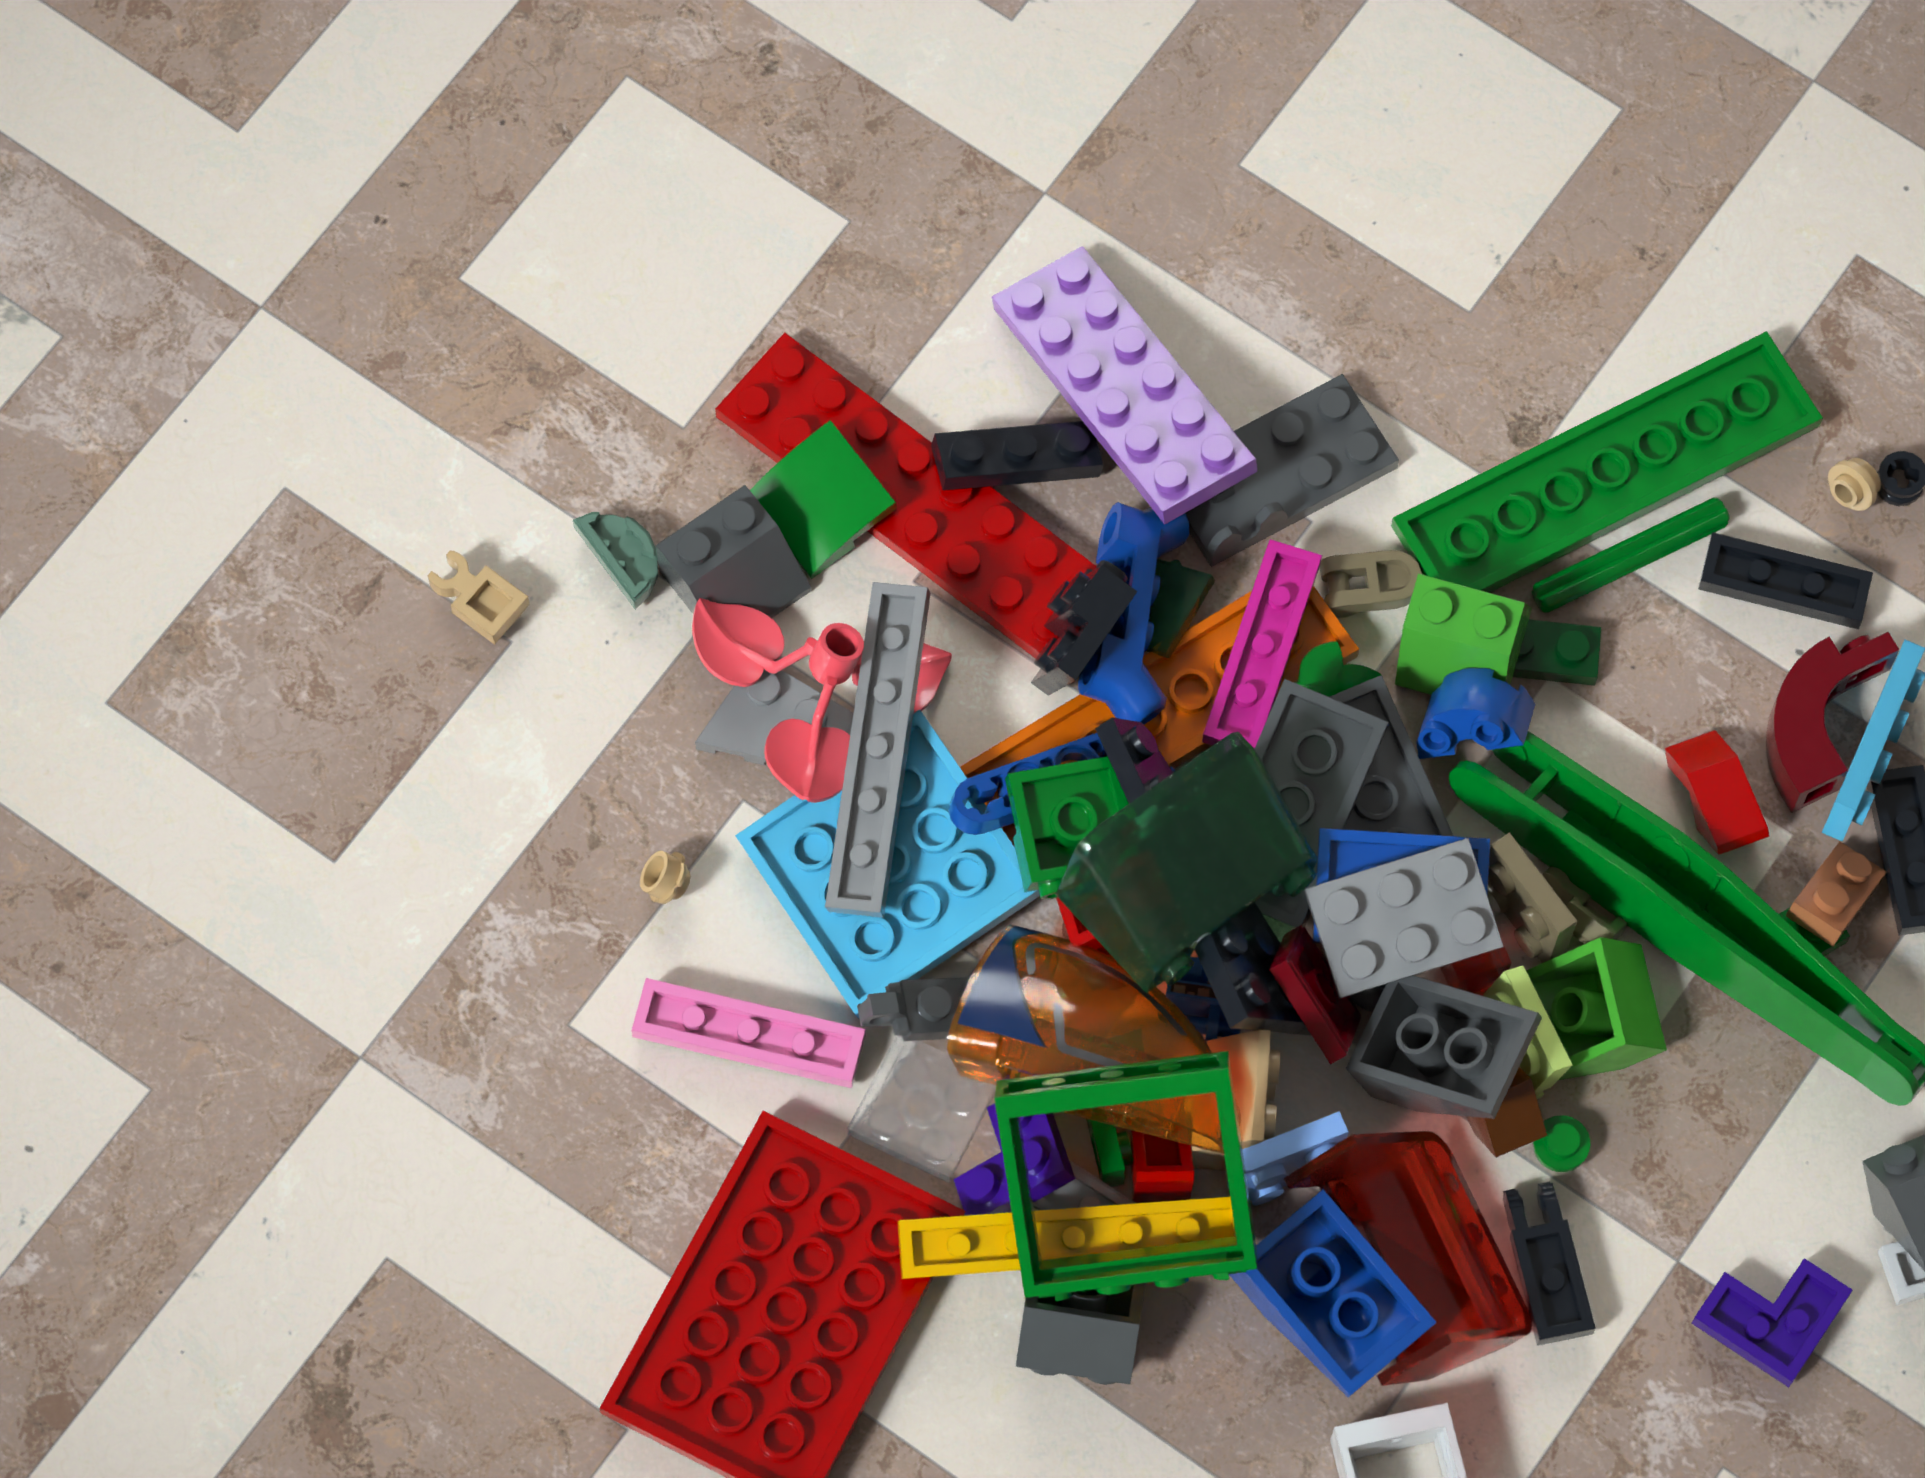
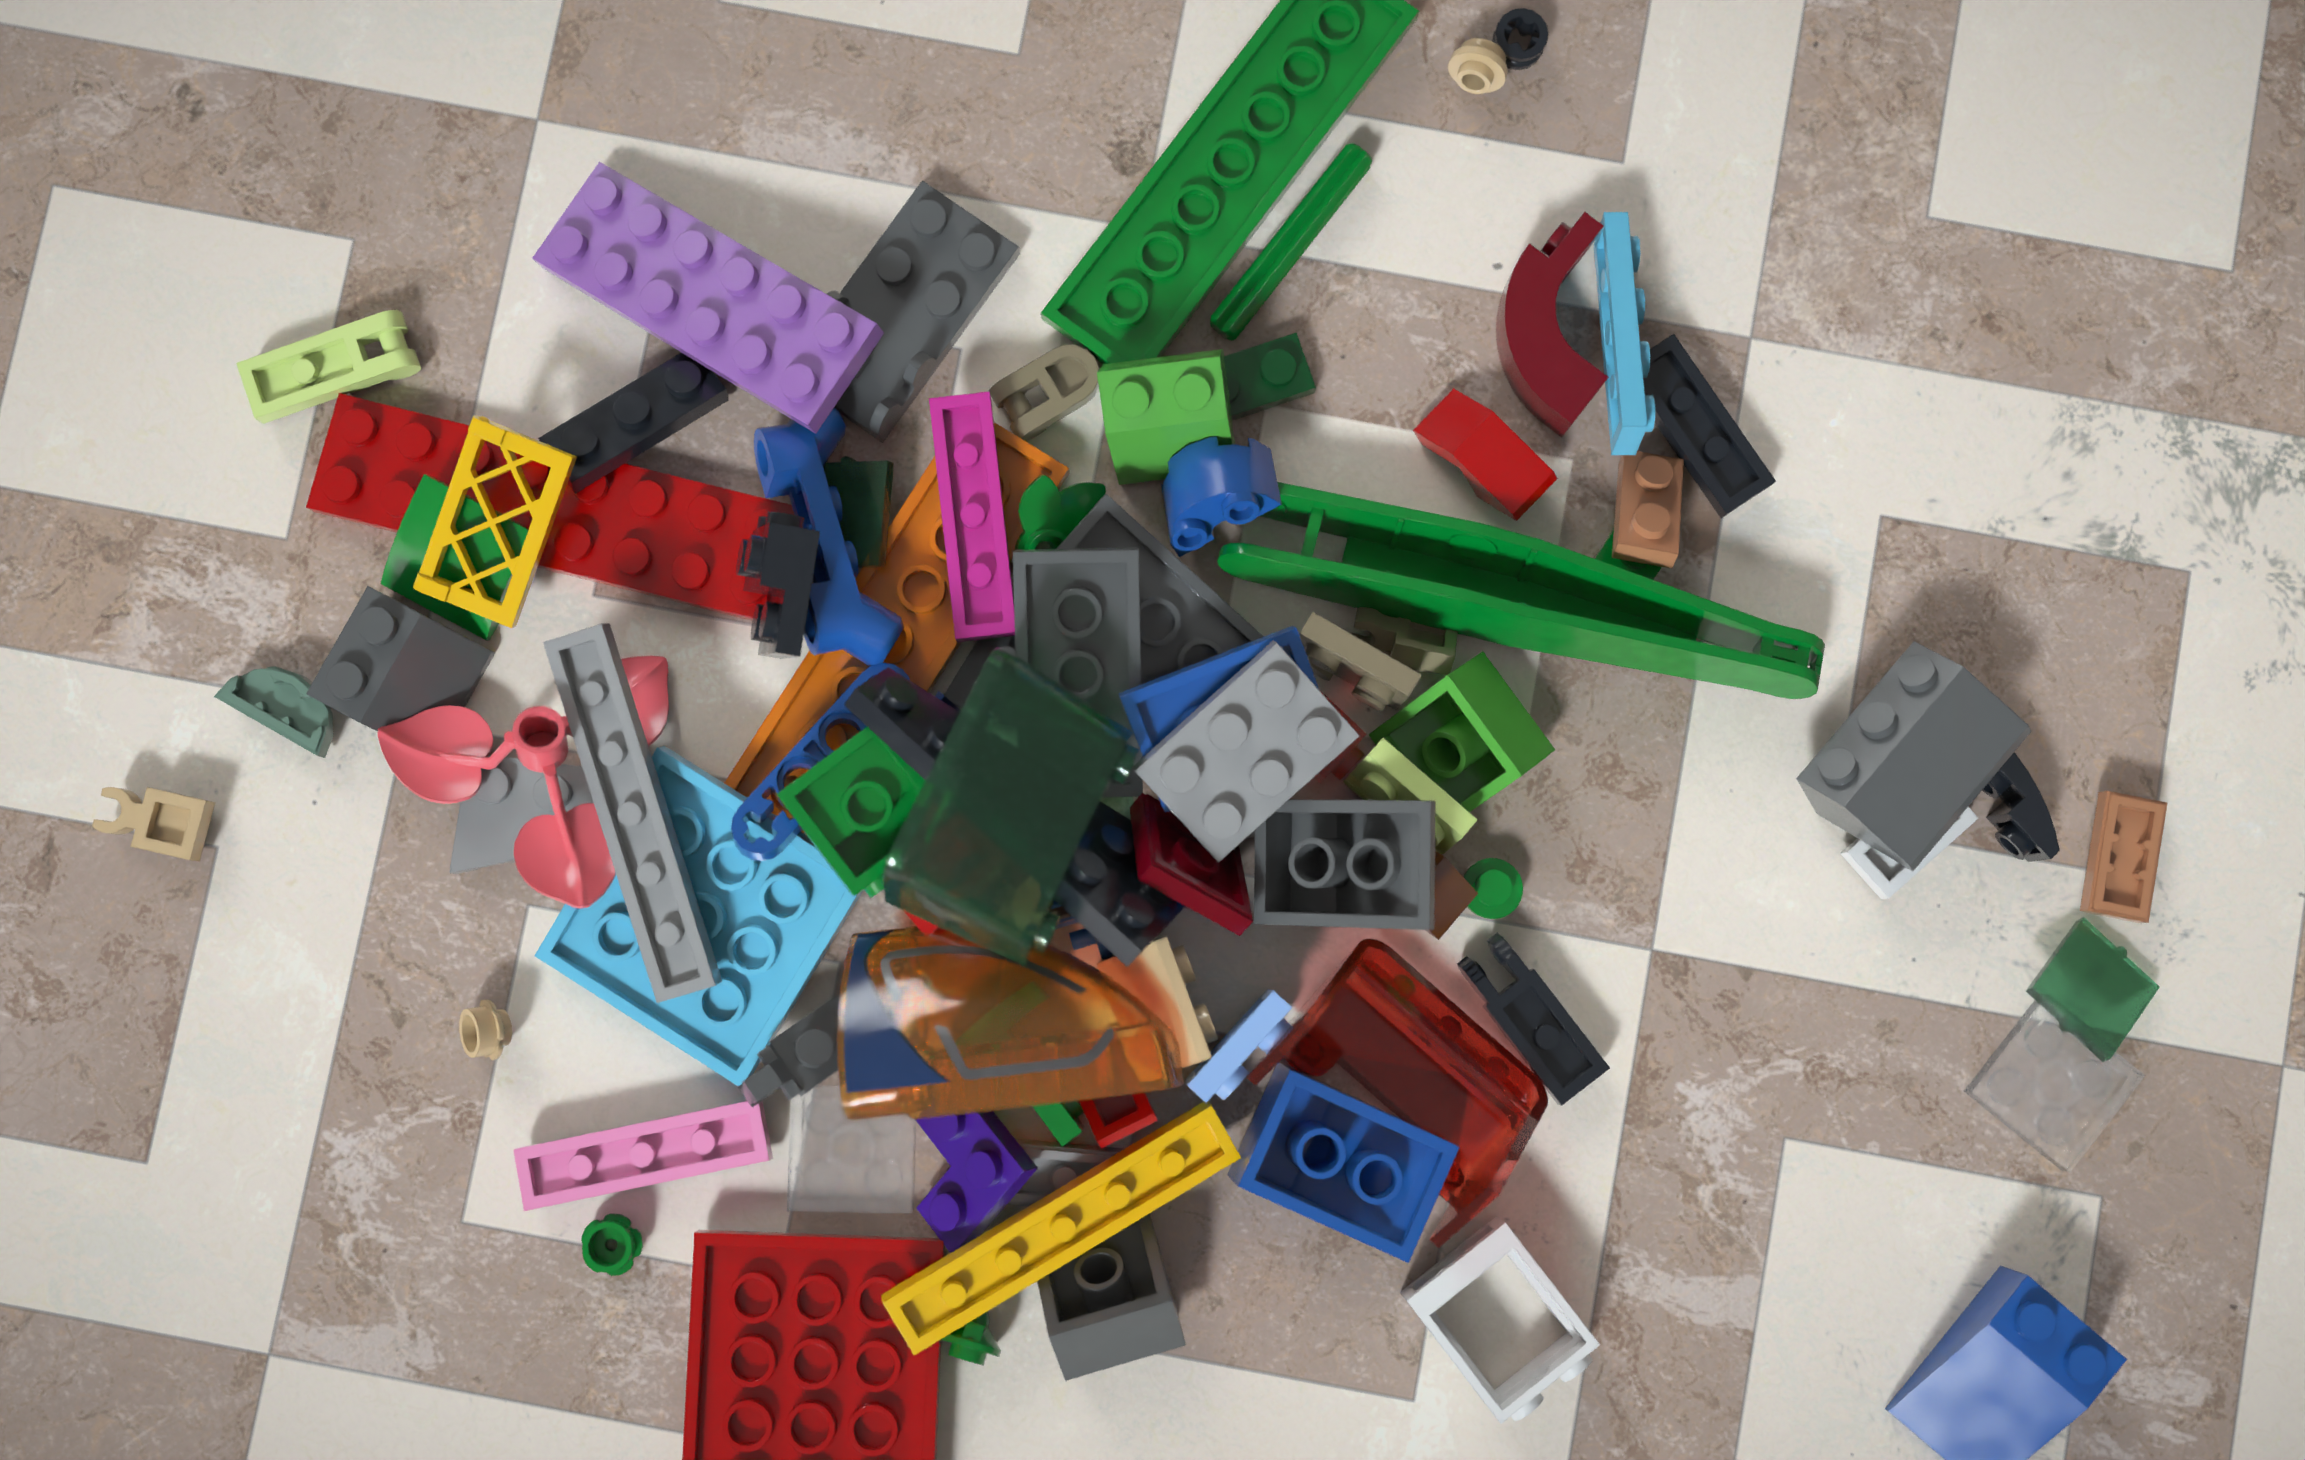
camera: 25 degrees left, 15 degrees up
(682, 1080) = (595, 1250): none -> green plate
(787, 306) = (327, 365): none -> yellowish green plate
(914, 486) = (542, 511): none -> yellow window
(951, 1302) = (973, 1341): none -> green plate
(1109, 1086) = (1045, 1104): green window -> none
(1777, 1334) = (1787, 984): dark purple plate -> none
(1785, 580) = (1455, 199): black plate -> none

